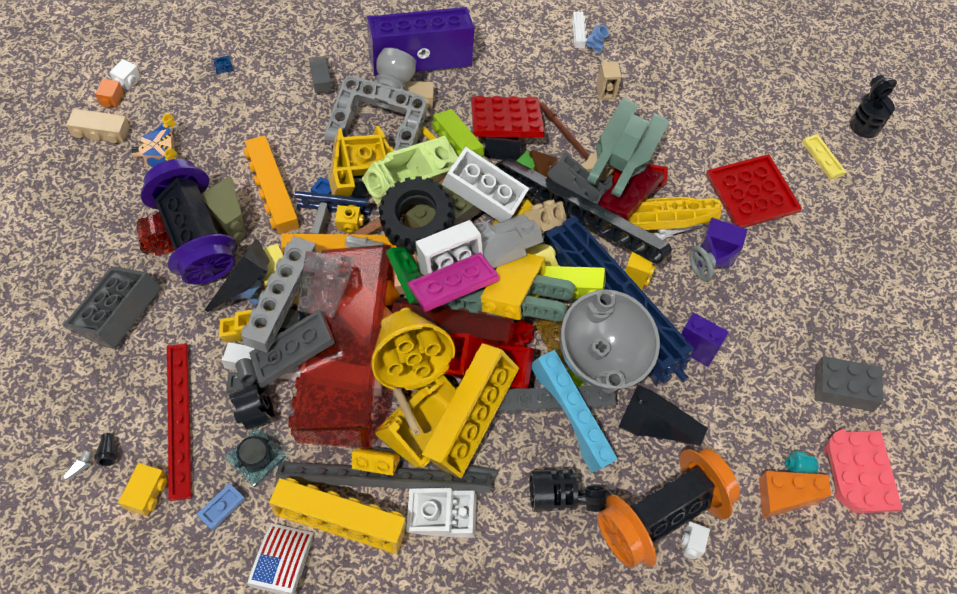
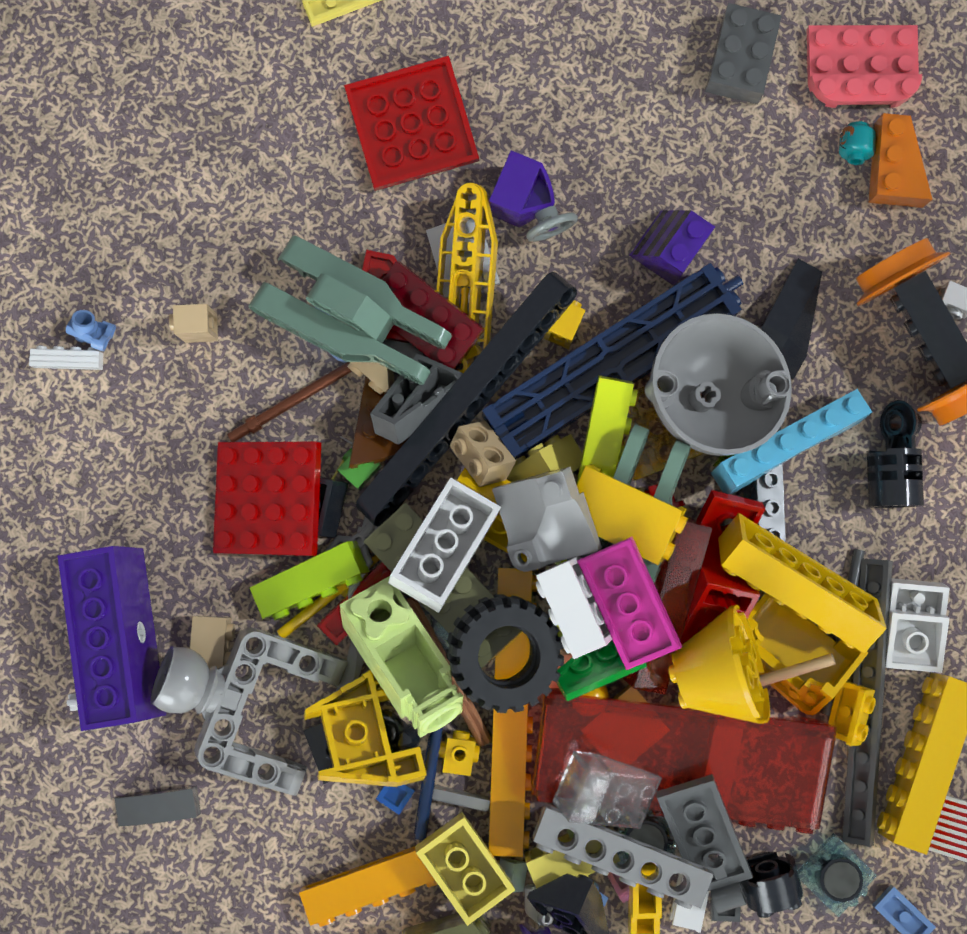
camera: 80 degrees left, 25 degrees up
(276, 211) = (464, 868): none -> light yellow brick
(352, 241) = (517, 733): light grey axle -> none

